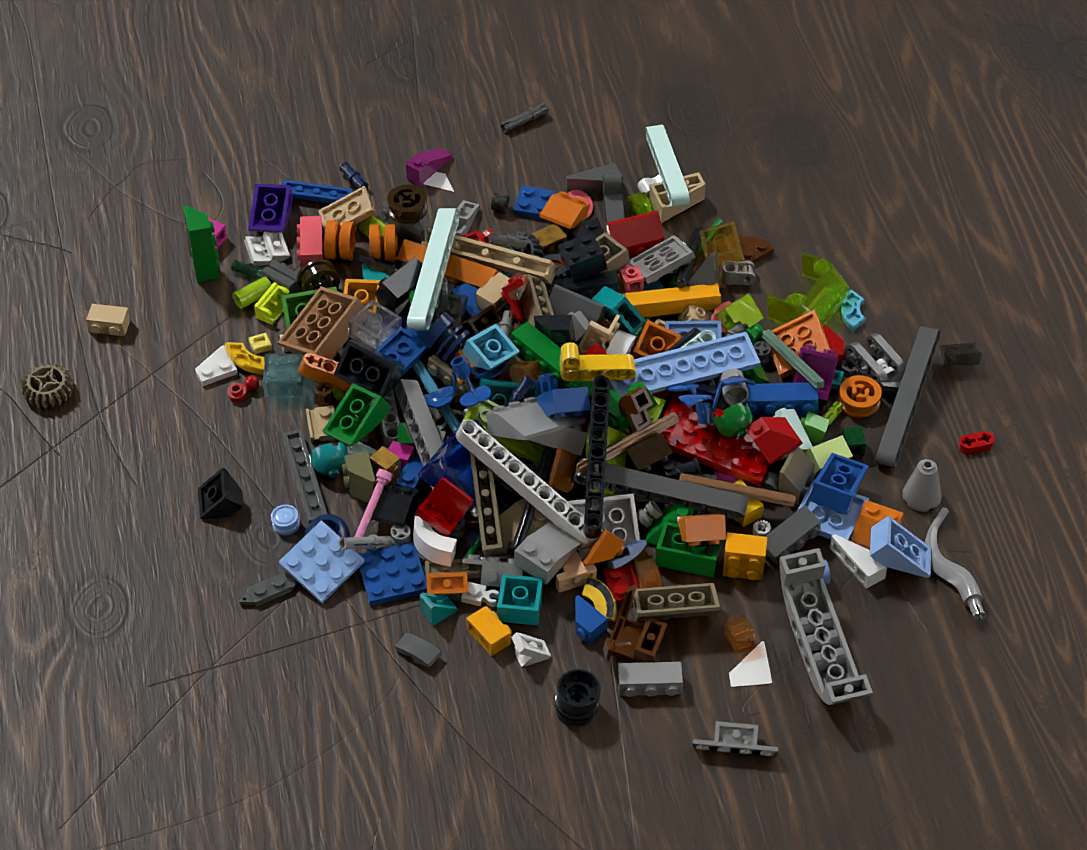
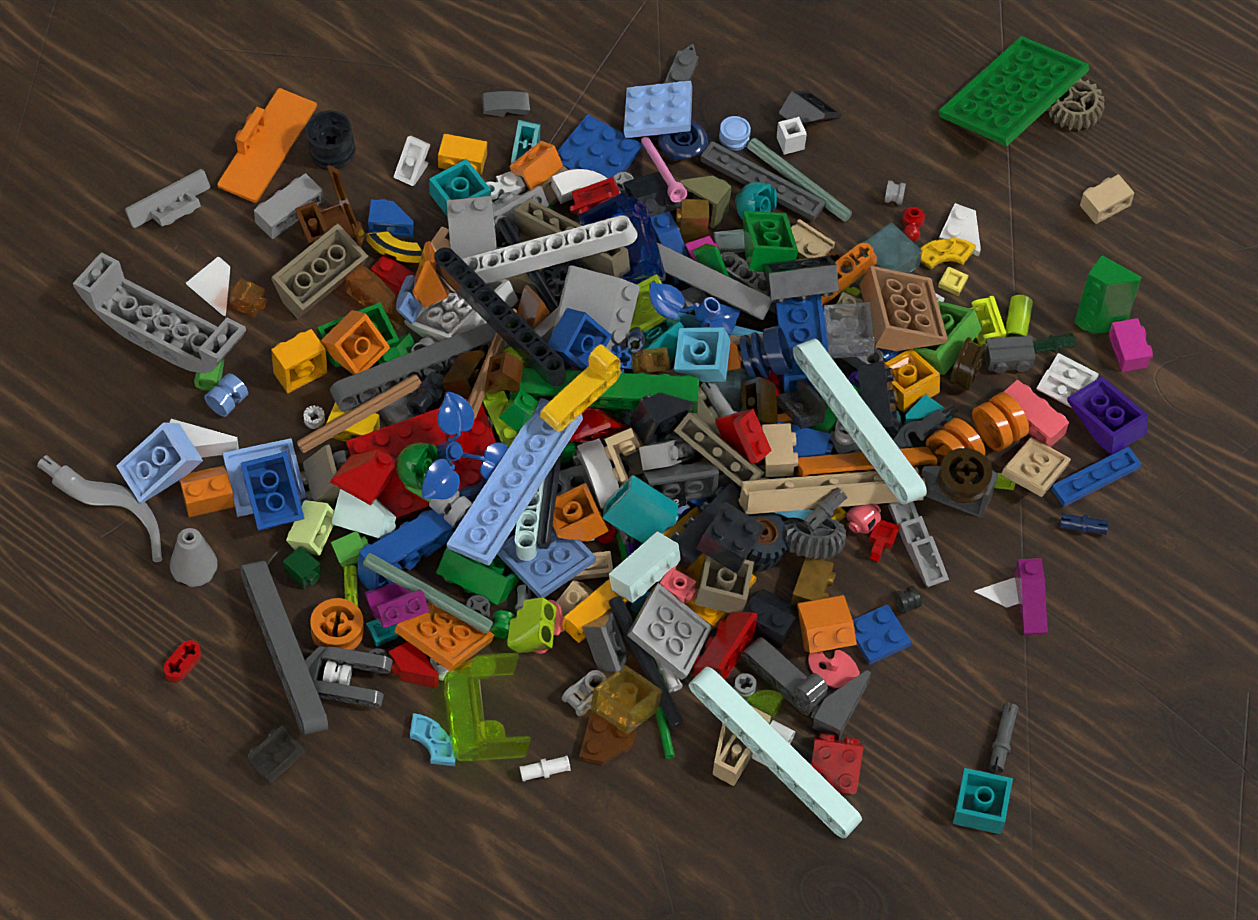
camera: 135 degrees right, 10 degrees up
(78, 410) = (1014, 90): none -> green plate
(231, 410) = (895, 192): none -> light grey wheel
(254, 484) = (791, 135): none -> white brick
(278, 458) = (798, 178): none -> sand green axle
(371, 542) = (638, 142): light grey pin -> none
(573, 94) = (982, 801): none -> teal brick
(621, 741) = (265, 144): none -> orange bracket
(628, 159) = (838, 761): none -> red bracket
(647, 283) = (644, 567): none -> light aqua brick
(792, 534) = (276, 414): dark grey brick -> none
(793, 252) = (545, 768): none -> white pin

